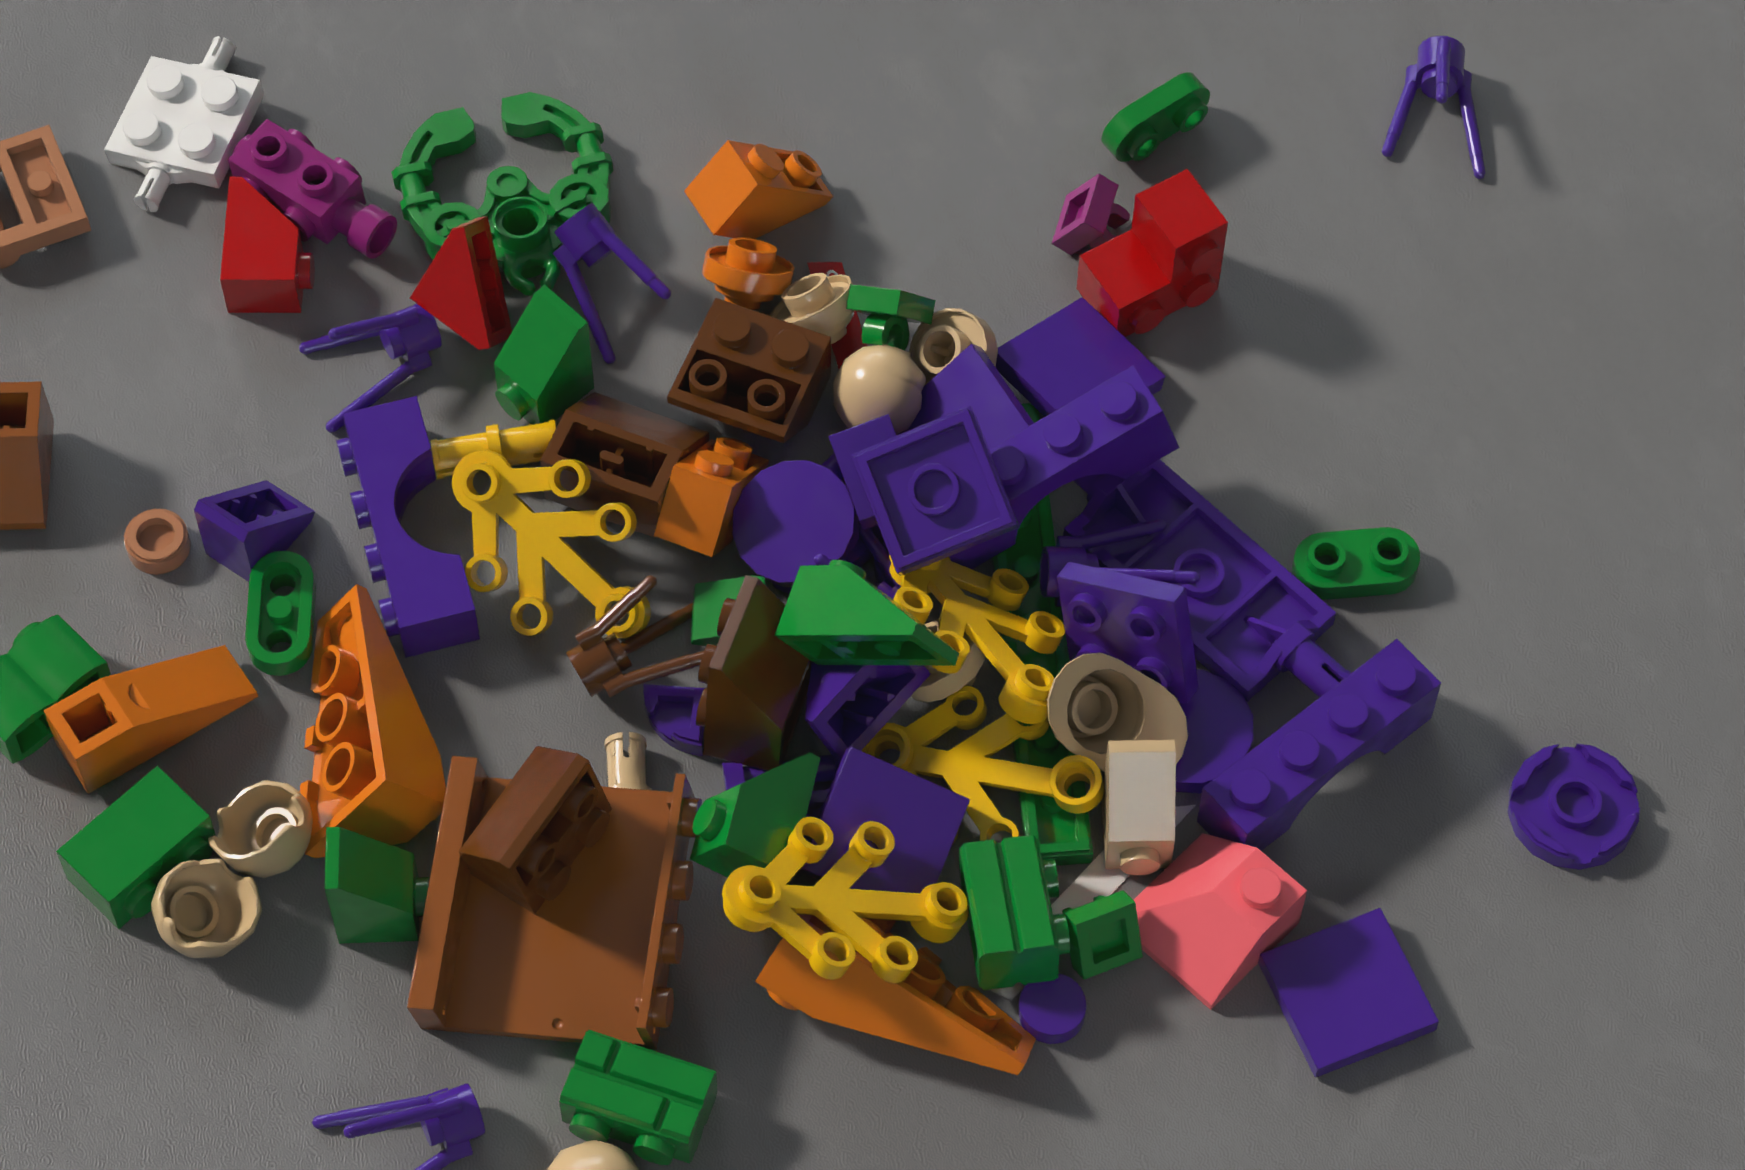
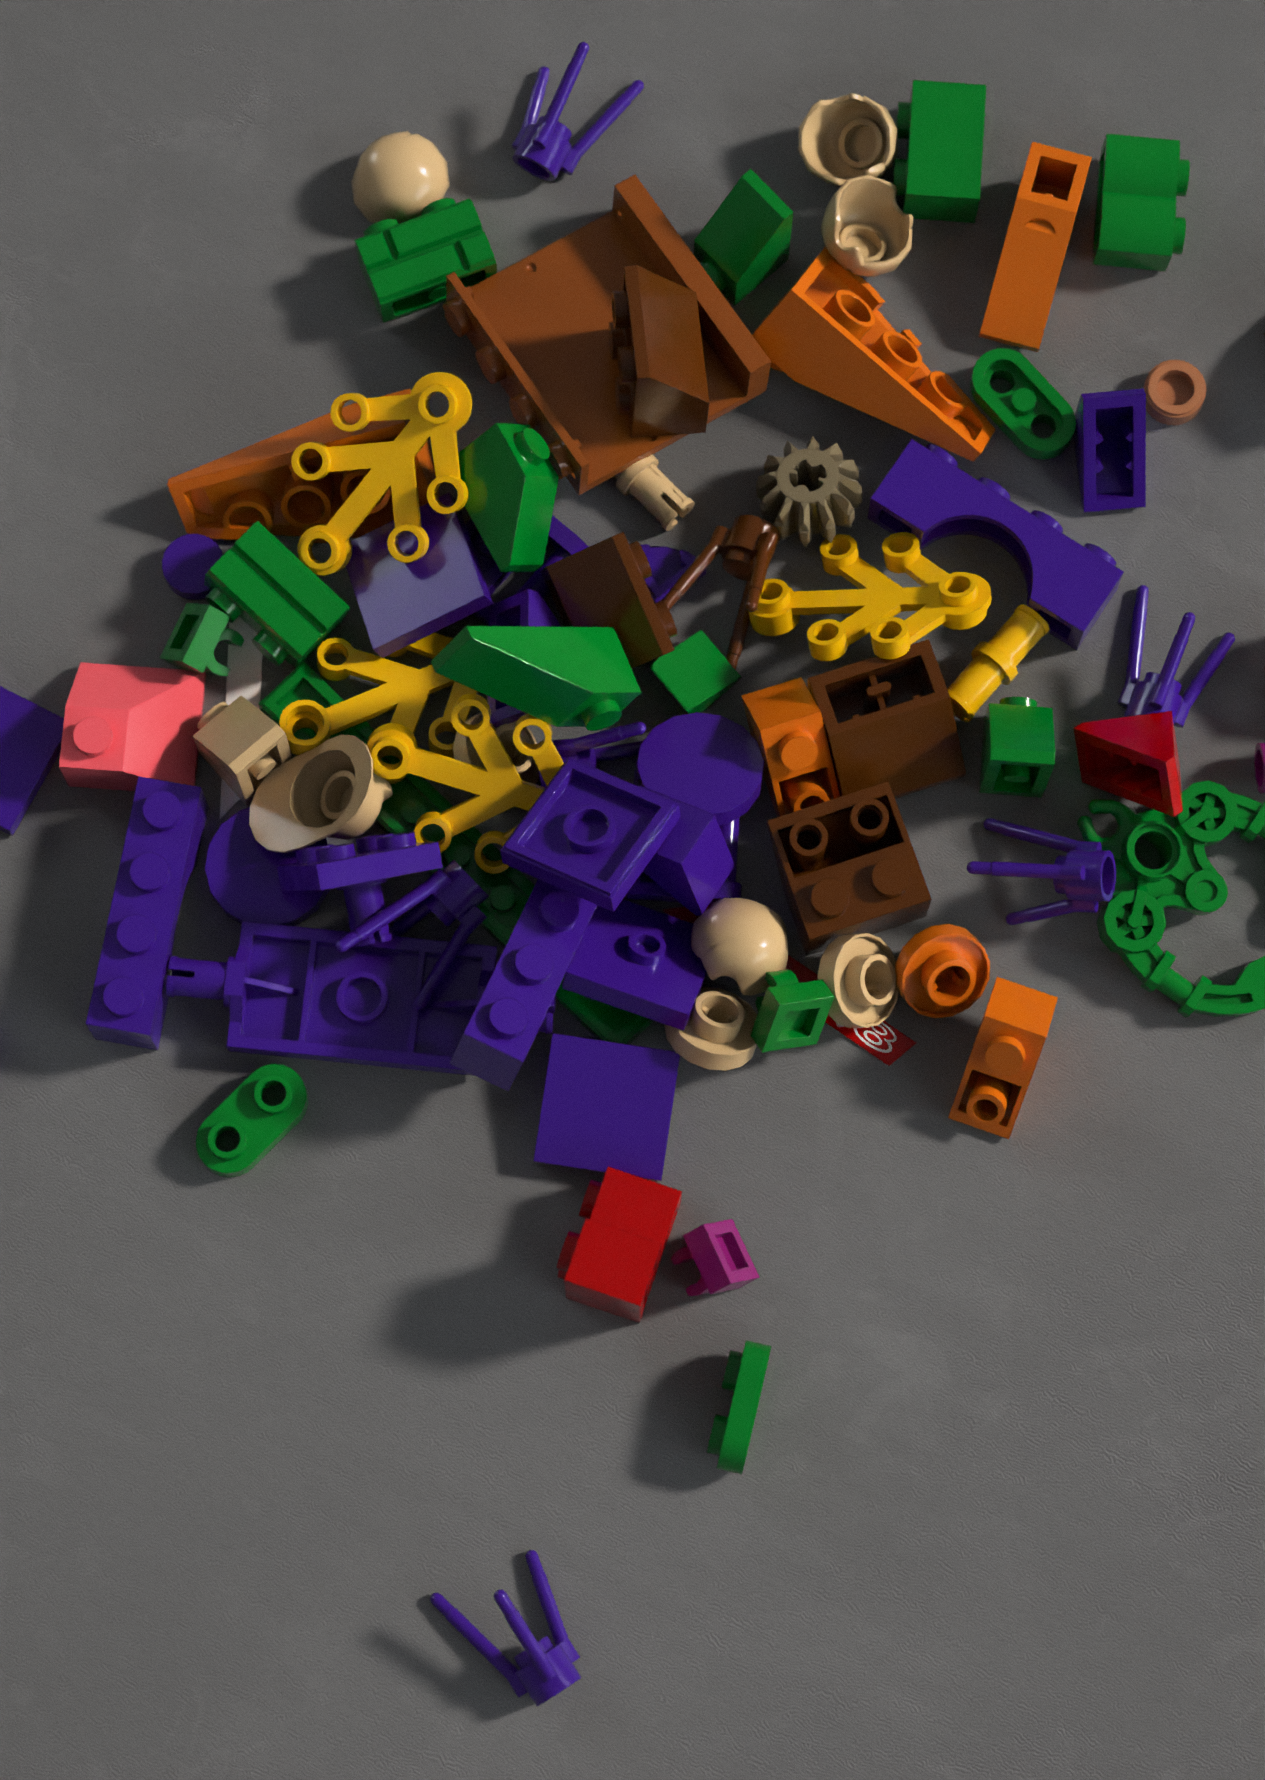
camera: 140 degrees right, 15 degrees up
(524, 687) = (809, 491): none -> dark tan gear

